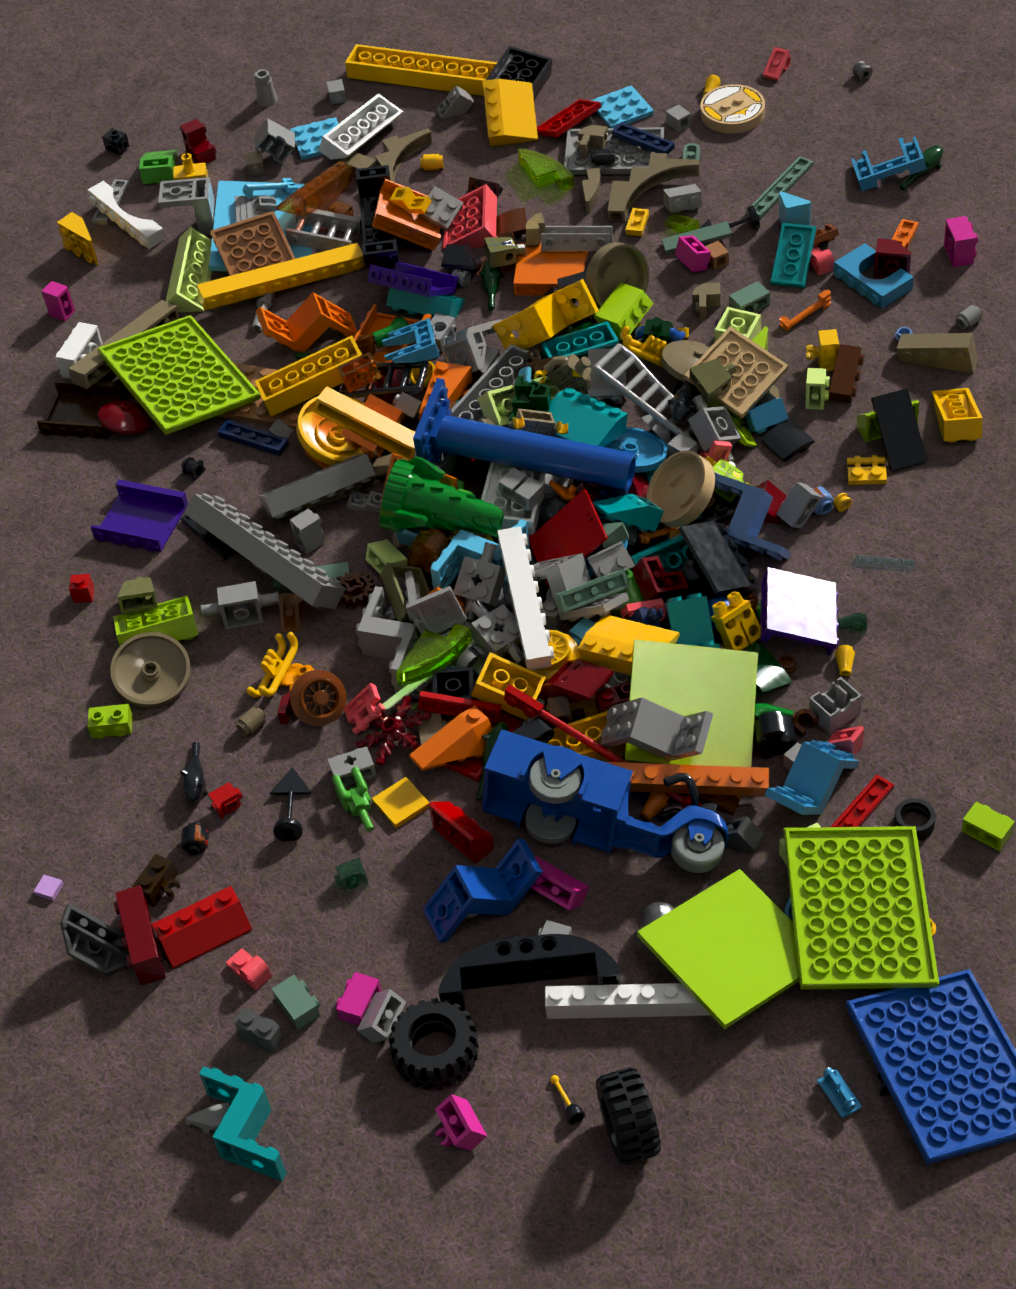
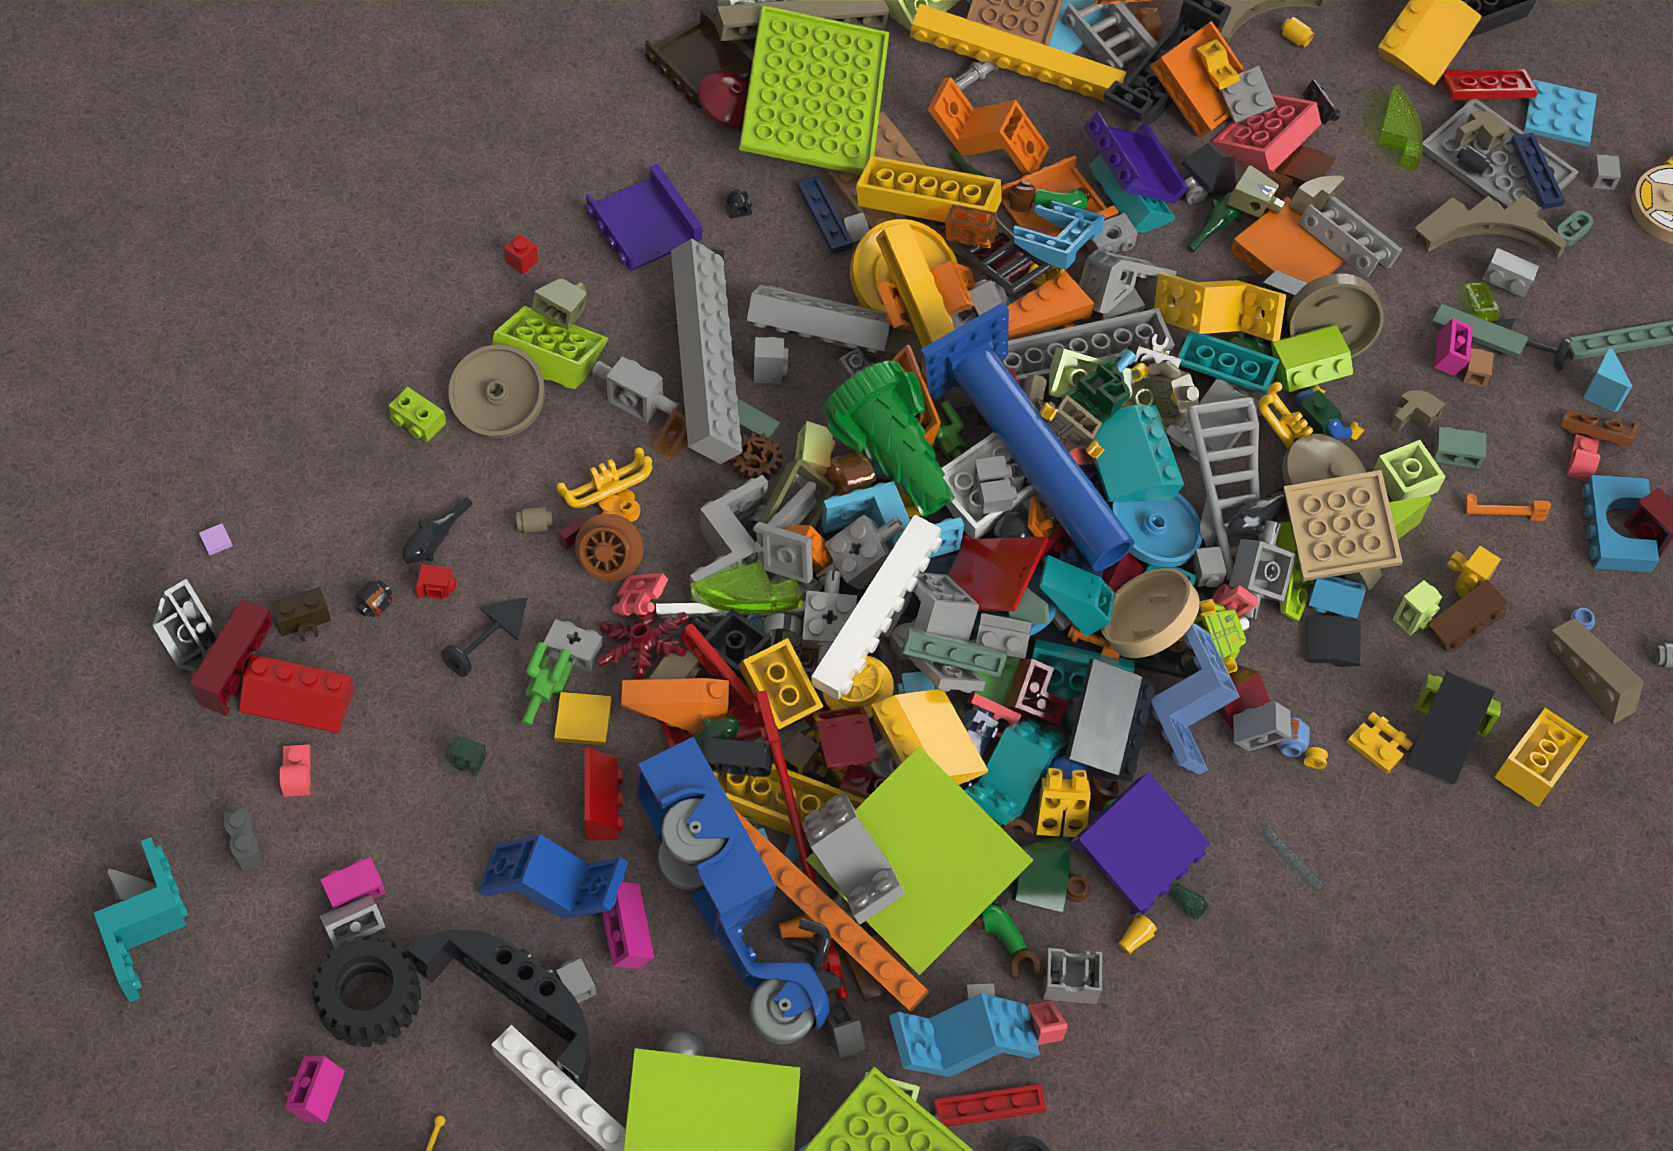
camera: 30 degrees right, 10 degrees up
(296, 1002) = (300, 840): sand green brick -> none
(591, 188) = (1428, 188): dark tan slope -> none
(637, 222) = (1437, 263): yellow plate -> none
(712, 378) = (1305, 515): olive torso -> none
(773, 734) = (979, 955): black brick -> none
(793, 255) = (1557, 432): teal tile -> none

